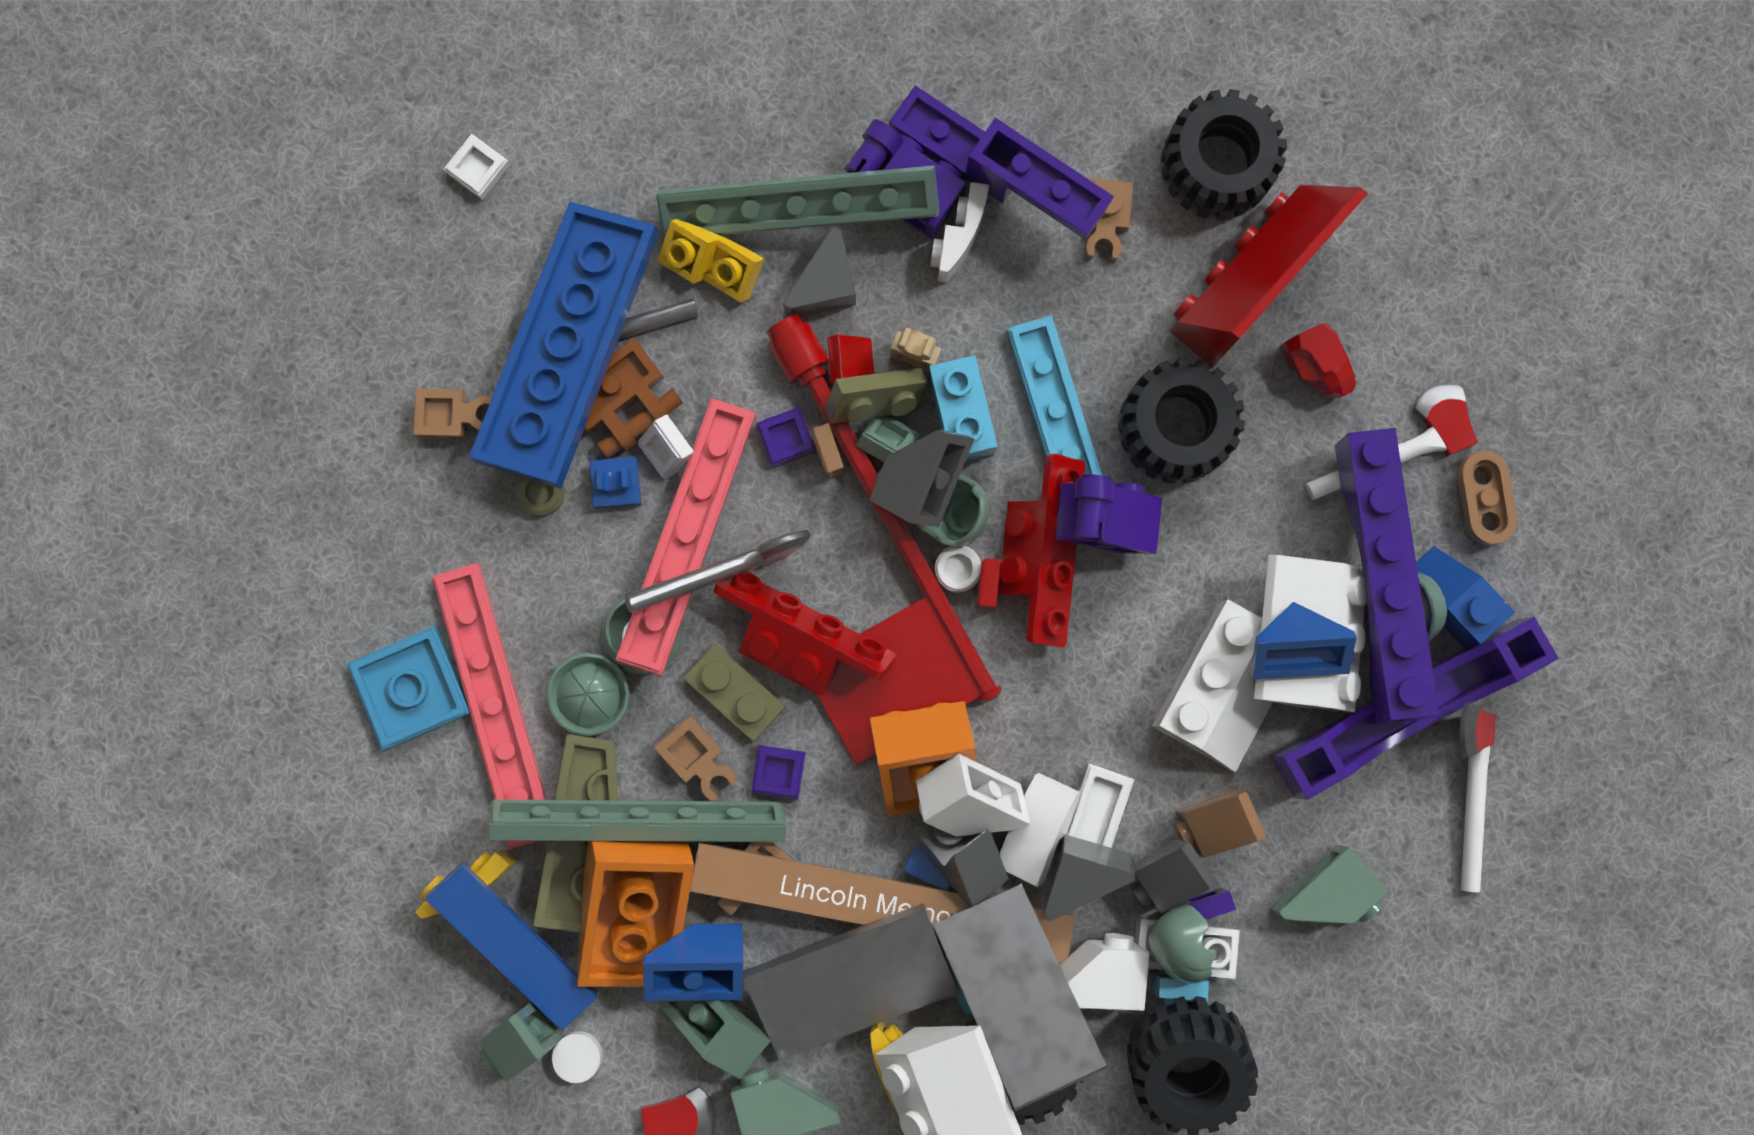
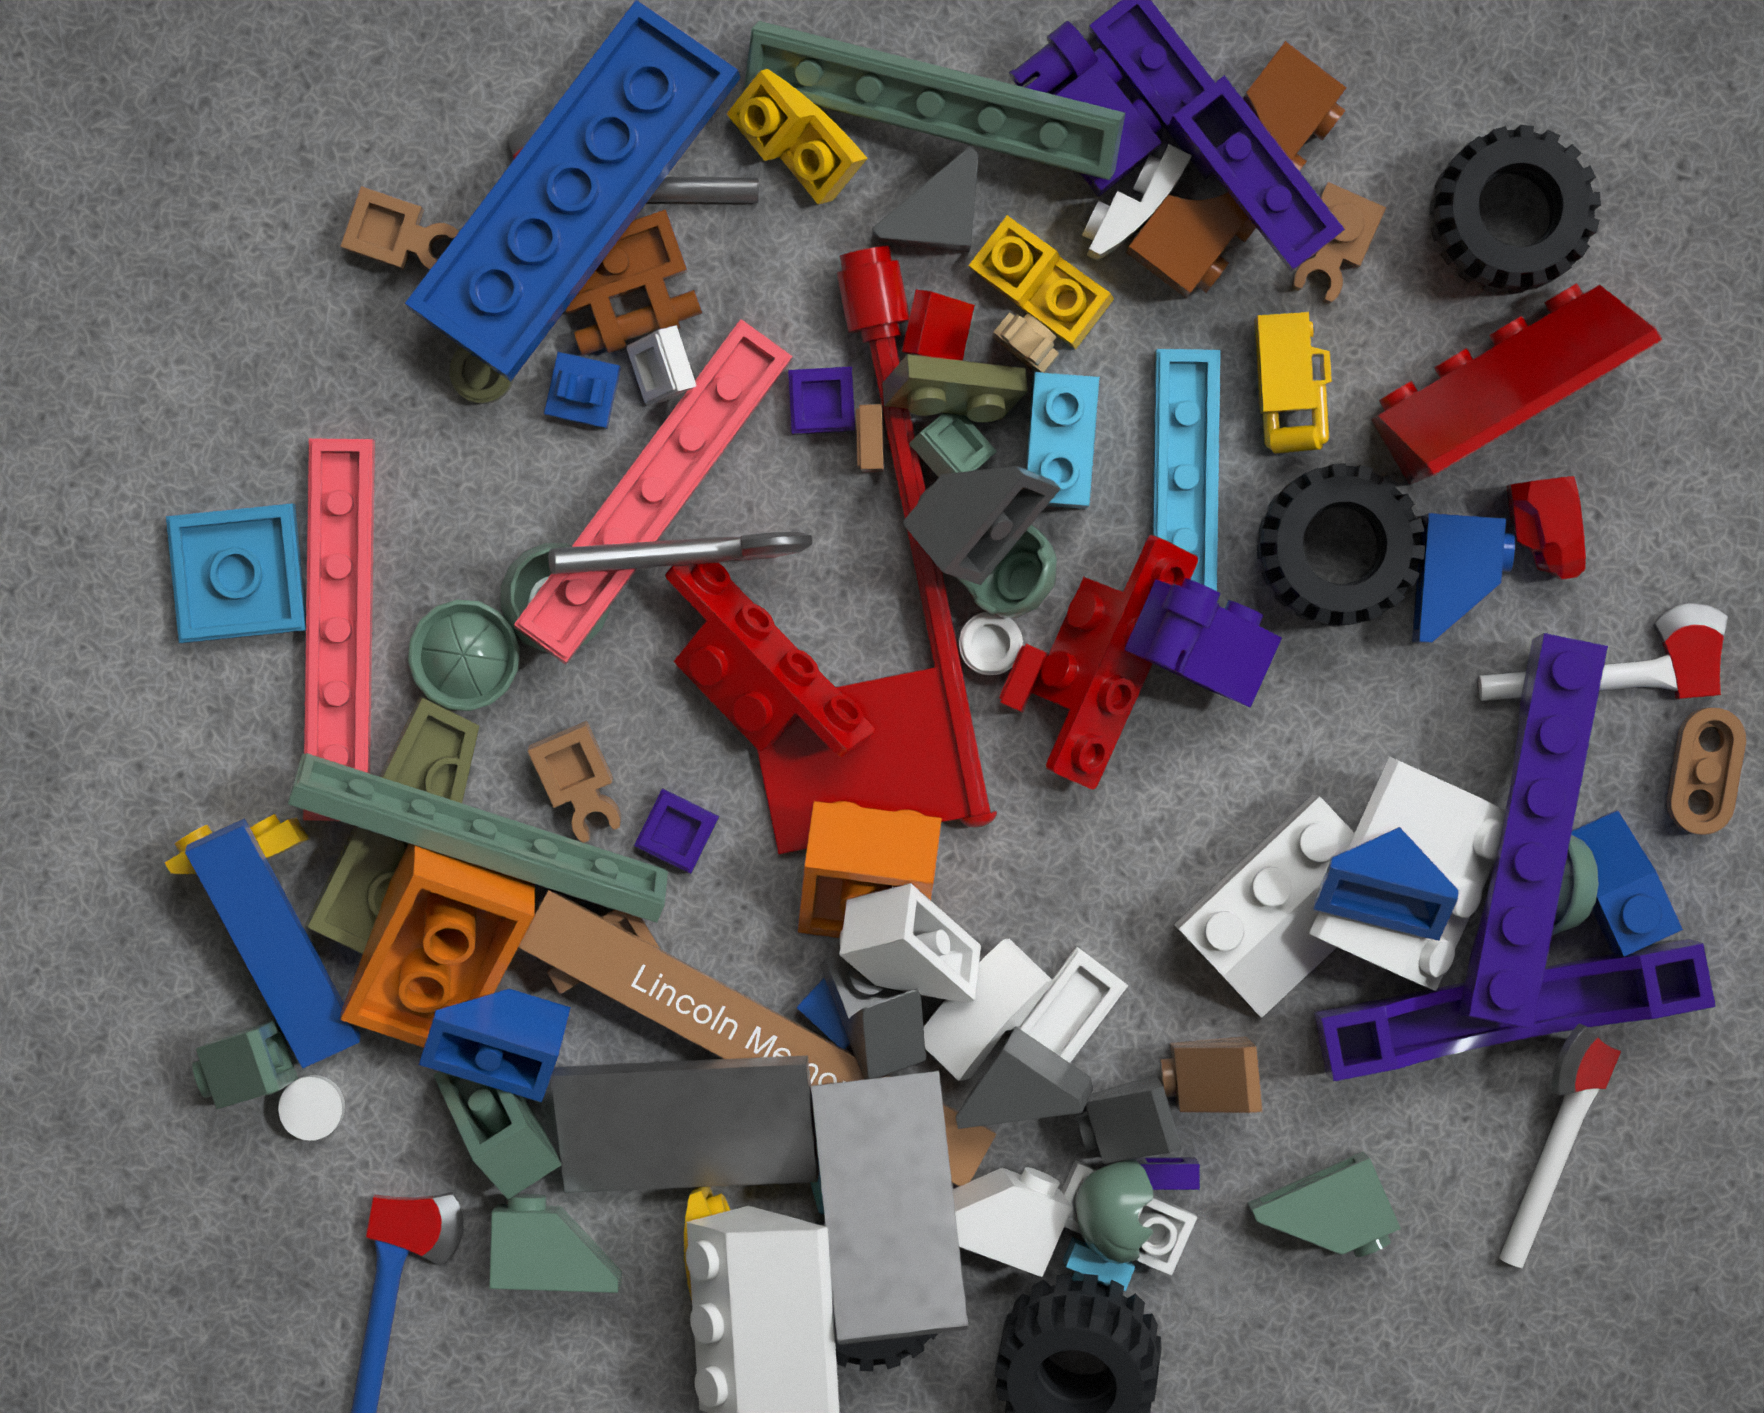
camera: 20 degrees right, 5 degrees up
(734, 692) = (652, 711): olive plate -> none
(904, 303) = (1041, 282): none -> yellow slope
(1005, 240) = (1188, 236): none -> dark orange arch
(1106, 321) = (1288, 382): none -> yellow piece
(1271, 410) = (1458, 569): none -> blue slope

